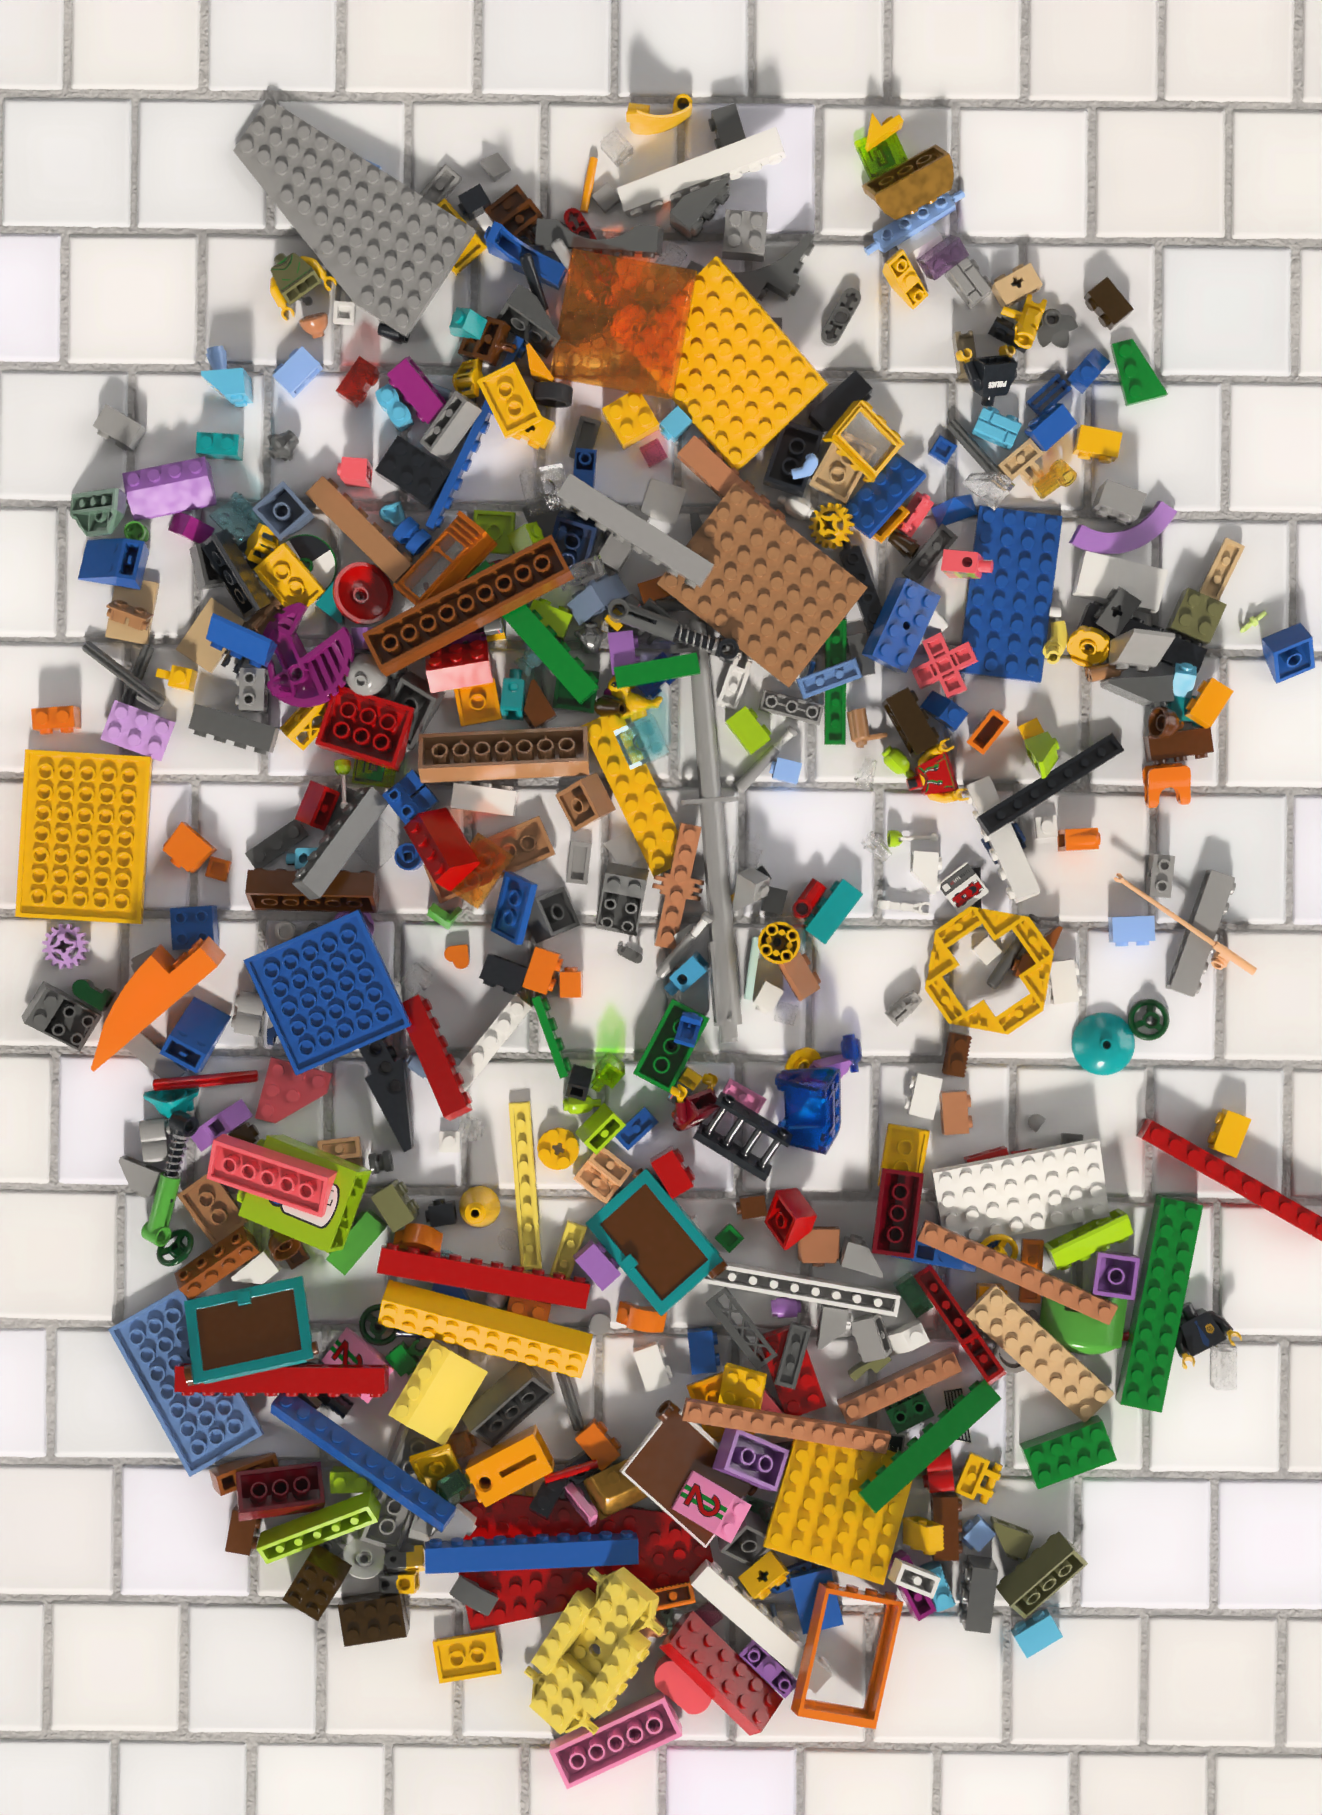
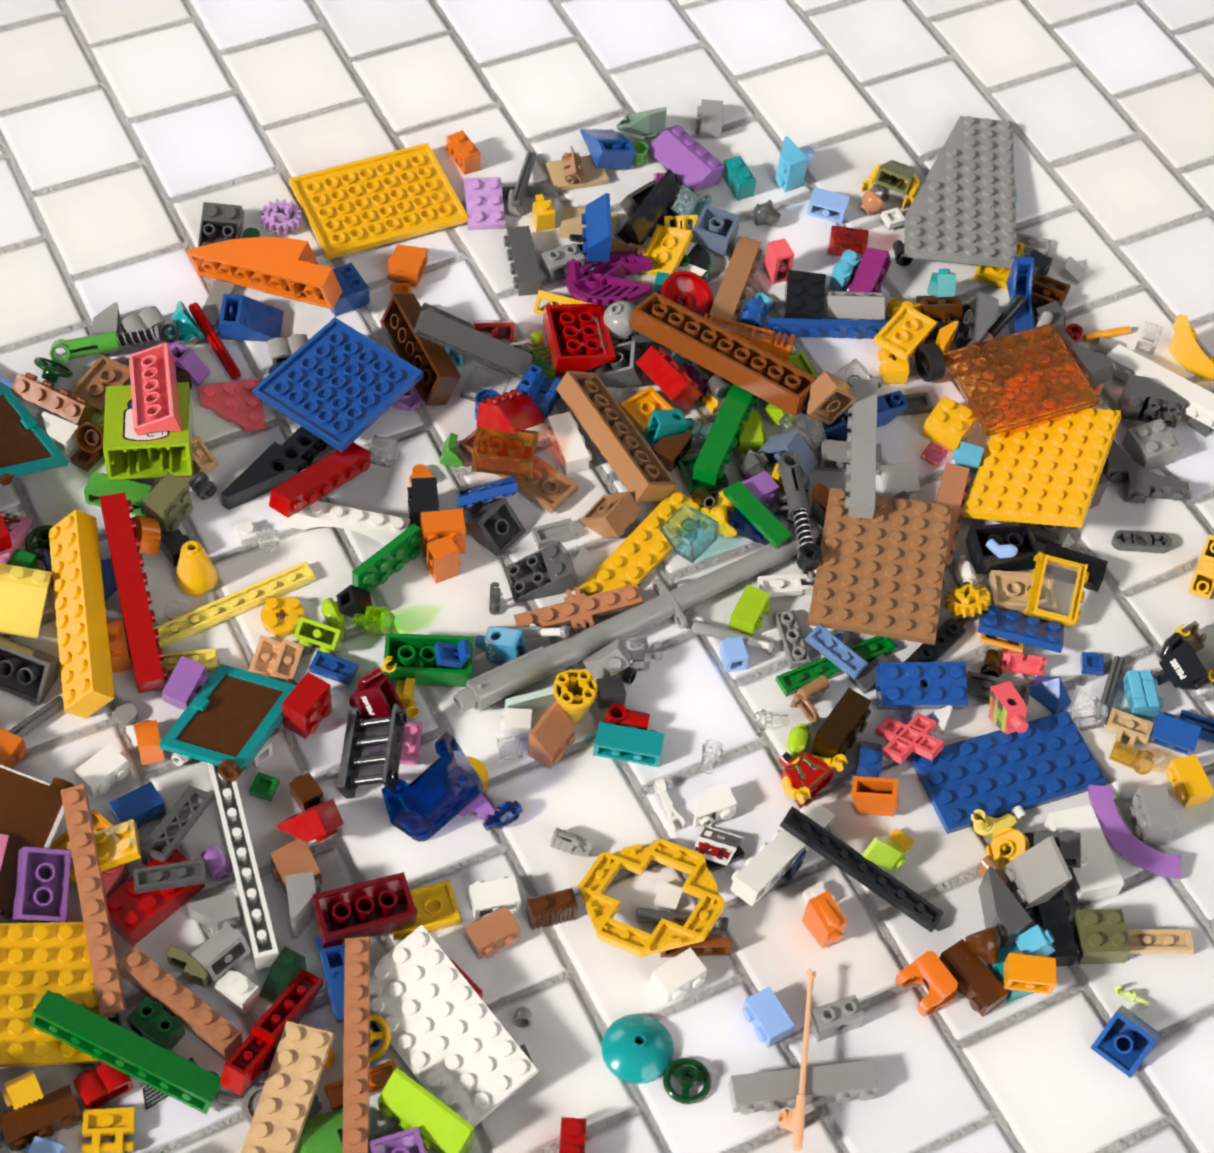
camera: 60 degrees right, 35 degrees down
(571, 533) = (829, 398): none -> medium nougat slope
(895, 838) = (727, 769): hinge -> none

